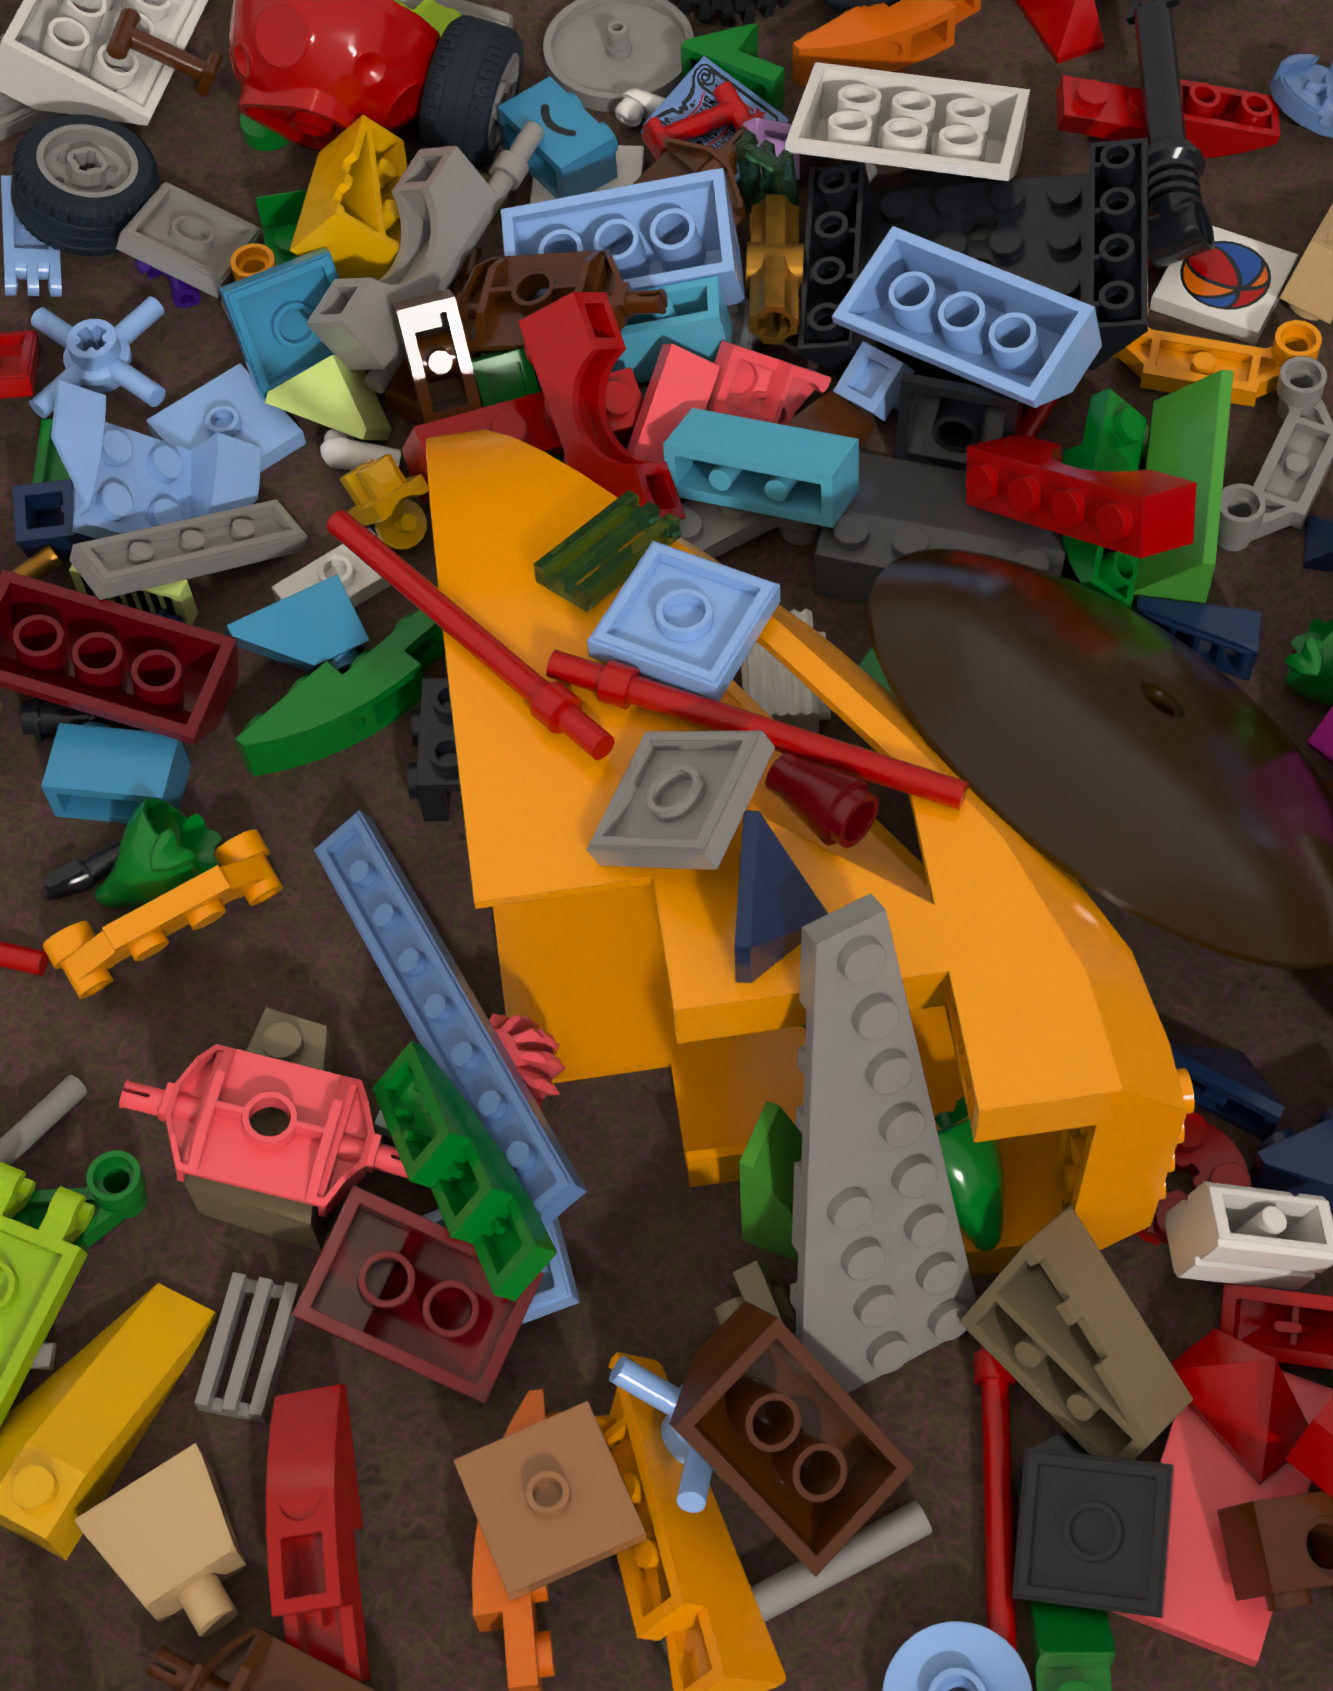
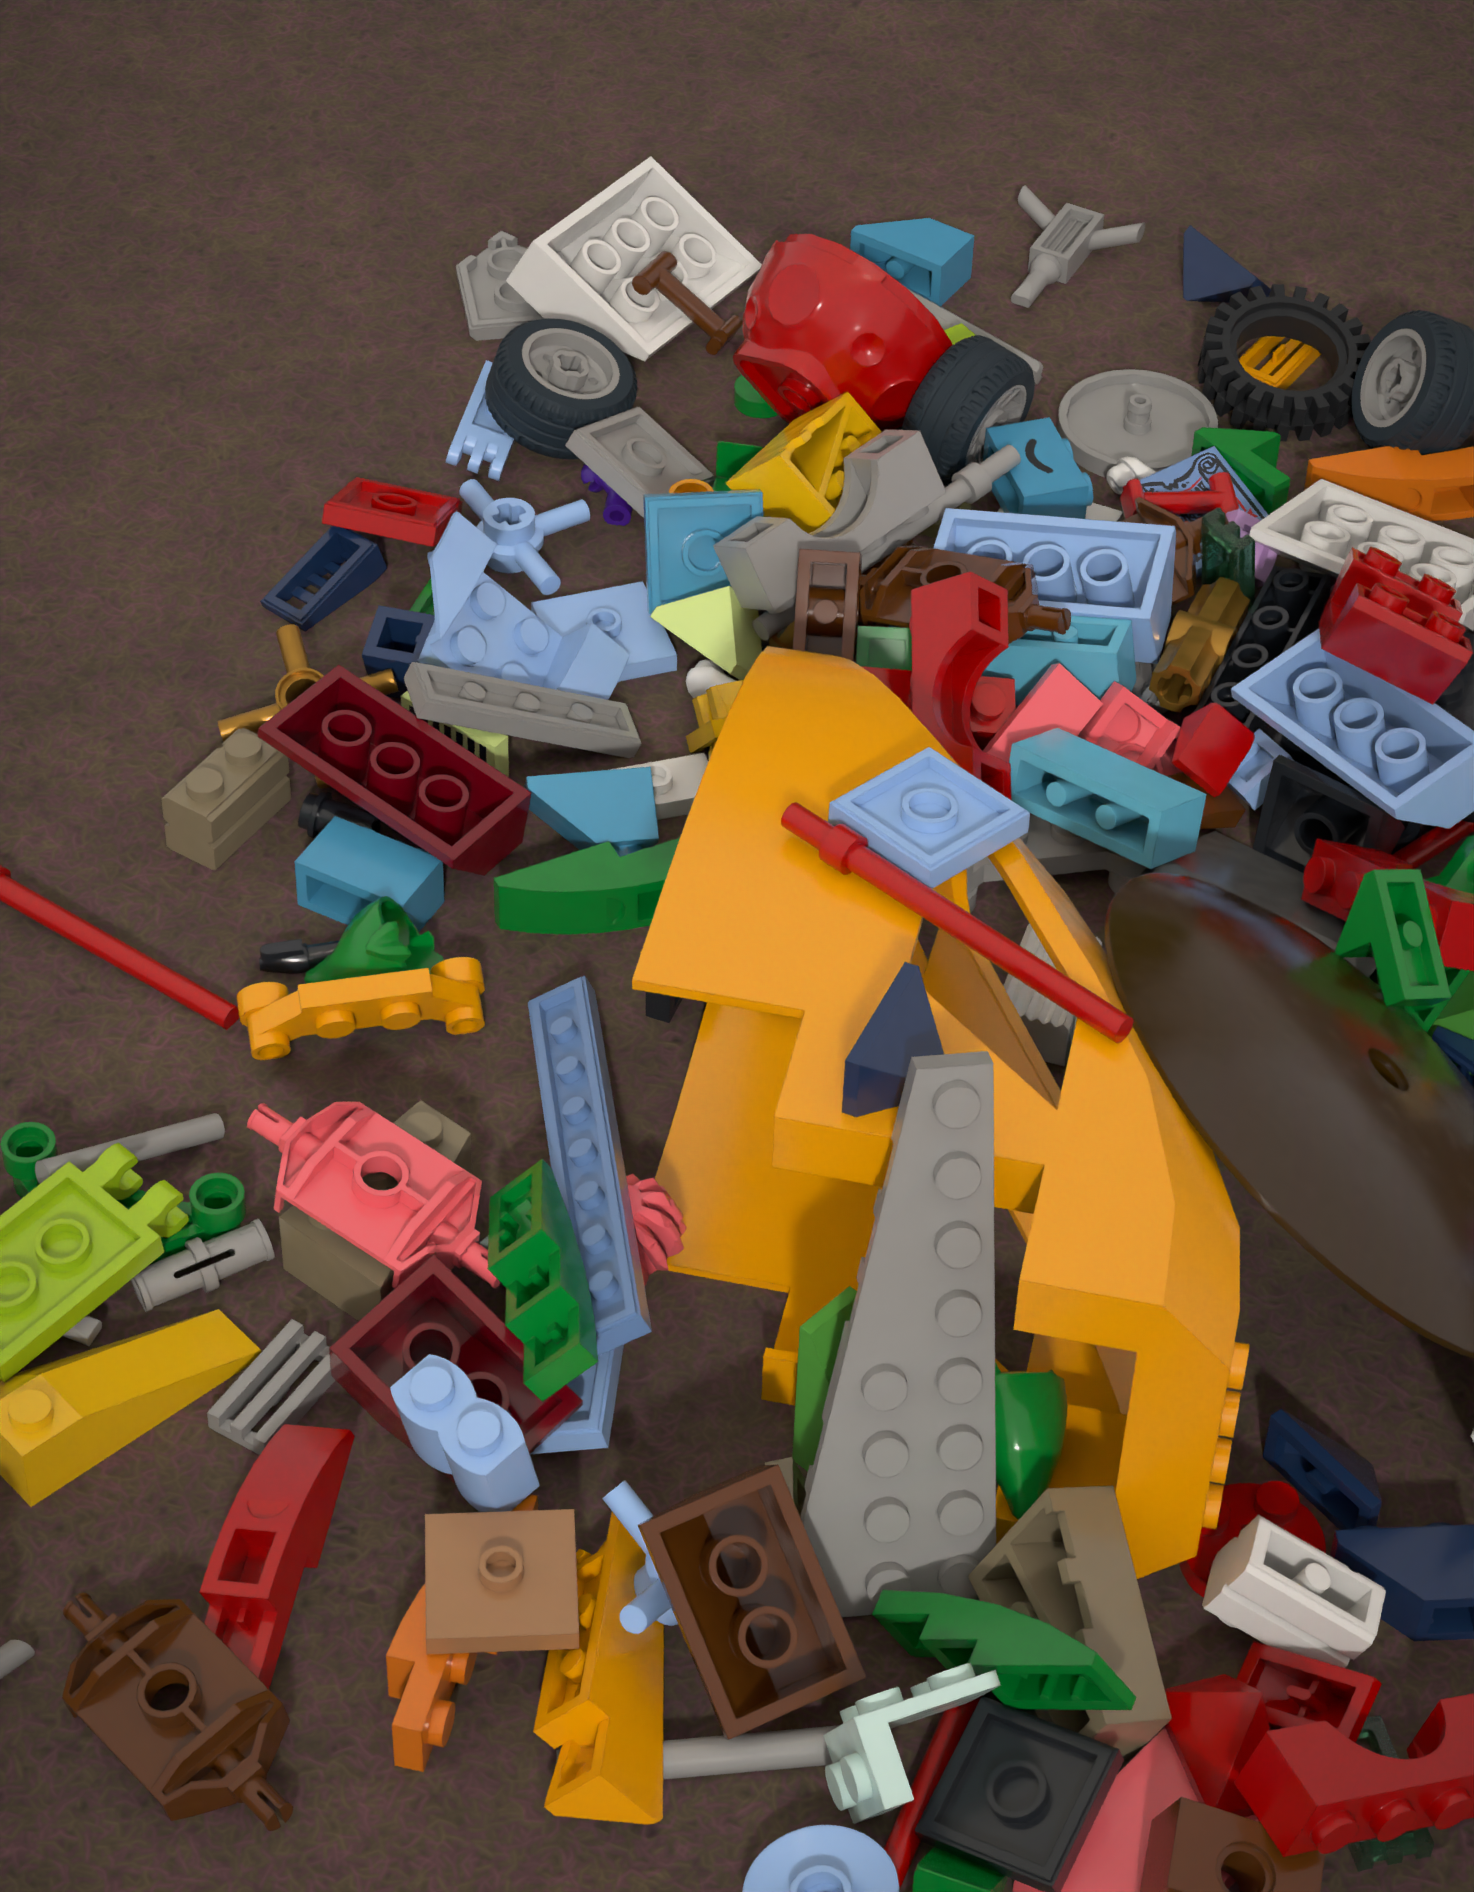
camera: 15 degrees right, 15 degrees down
(127, 1244) = (246, 1248): none -> light grey pin
(171, 1541) = (134, 1511): tan torso -> none
(466, 1370) = (465, 1435): none -> light blue brick
(550, 702) = (773, 841): red bar -> none
(599, 544) = (870, 749): clear green tile -> none
(681, 799) = (854, 943): light grey tile -> none
(825, 800) = (994, 996): dark red cone -> none
(830, 377) = (1211, 747): none -> red slope
(952, 1516) = (865, 1759): none -> light aqua bracket
(957, 216) = (1395, 625): none -> red slope
(1040, 1407) = (1032, 1658): none -> green slope
(1099, 533) = (1397, 929): none -> green slope

